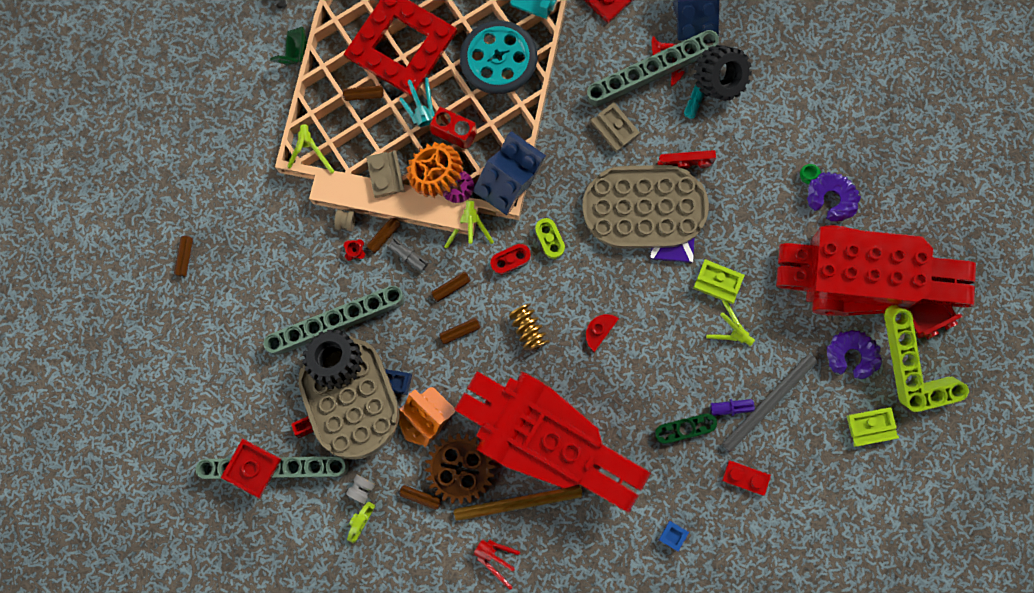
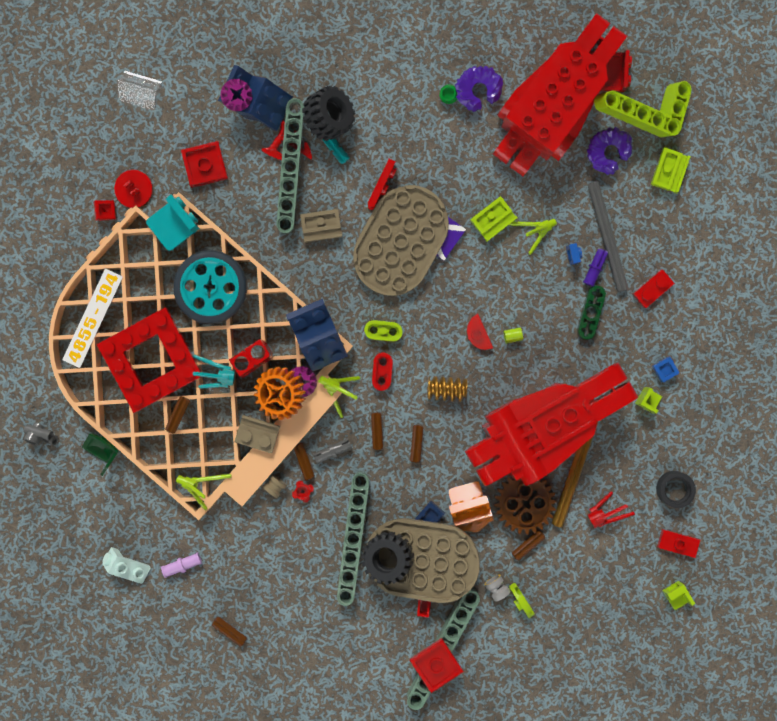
camera: 70 degrees left, 10 degrees up
(195, 128) = (123, 567): none -> light aqua bracket
(224, 177) = (181, 565): none -> lavender pin
(617, 364) = (513, 335): none -> lime hinge
(633, 537) = (649, 400): none -> lime panel
(732, 378) = (574, 254): none -> blue plate

